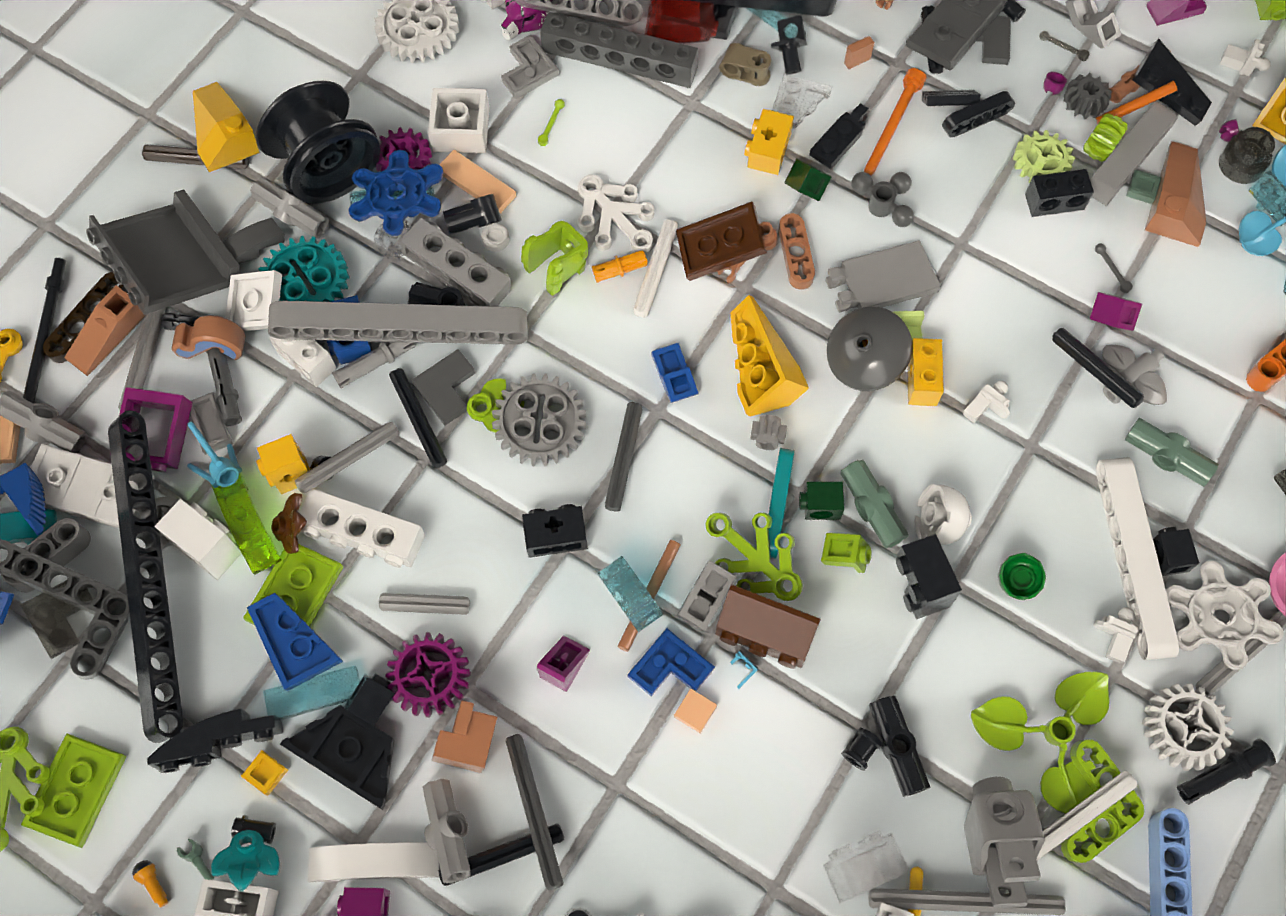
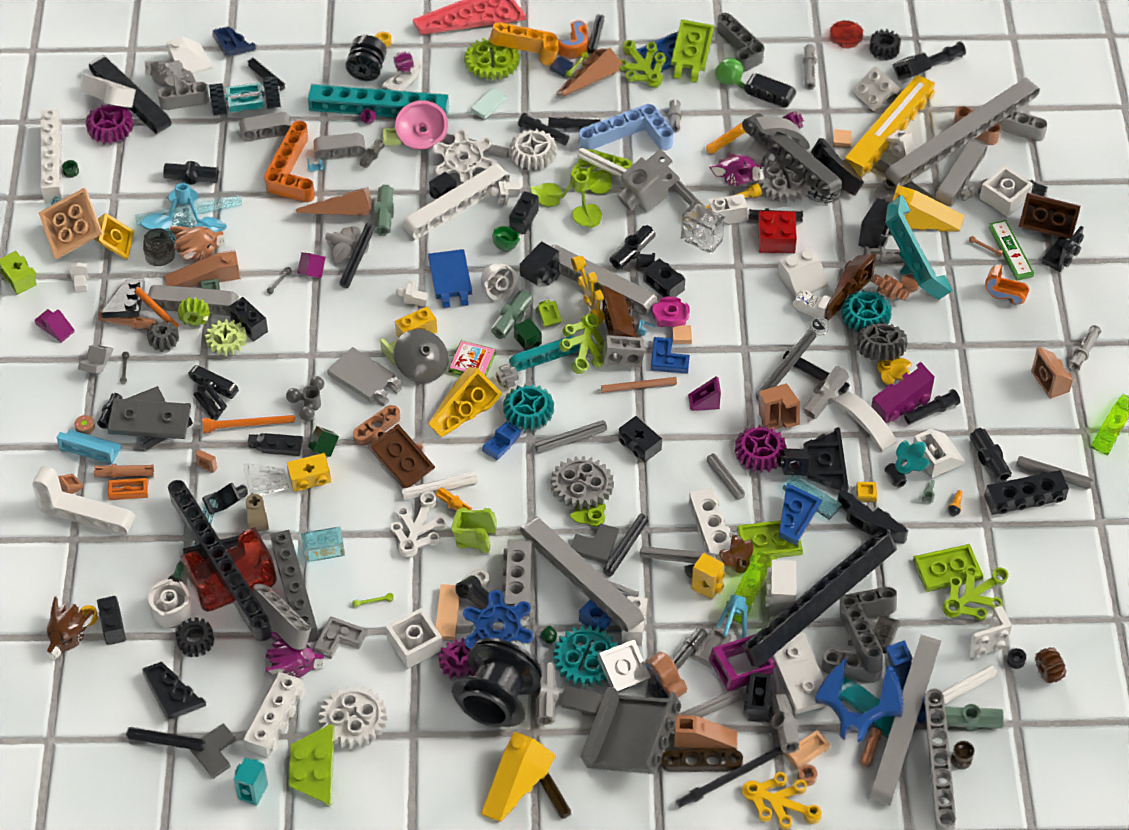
camera: 125 degrees left, 15 degrees down
(89, 412) = (759, 697): none -> black brick
(362, 259) = (548, 635): none -> dark green hinge
(429, 295) = (547, 577): black piece -> none
(630, 594) = (648, 382): clear light blue brick -> none
(655, 102) = (322, 544): none -> clear light blue brick
(713, 430) = (524, 405): none -> teal gear
(758, 713) = (665, 318): none -> dark pink plate
(821, 737) = (664, 279): none -> black brick
(828, 414) = (472, 355): none -> tile
(837, 612) = (591, 297): none -> yellow plant
(865, 658) = (638, 297): none -> light grey beam
(995, 470) = (450, 276): none -> blue tile
(1054, 83) = (162, 356): magenta hinge -> none
(1057, 631) = (524, 212): none -> black brick
(1208, 405) = (349, 204): none -> nougat wedge
(1216, 830) = (570, 123): none -> black pin
(1228, 130) = (142, 263): magenta hinge -> none
(1232, 193) = (194, 240): none -> nougat piece

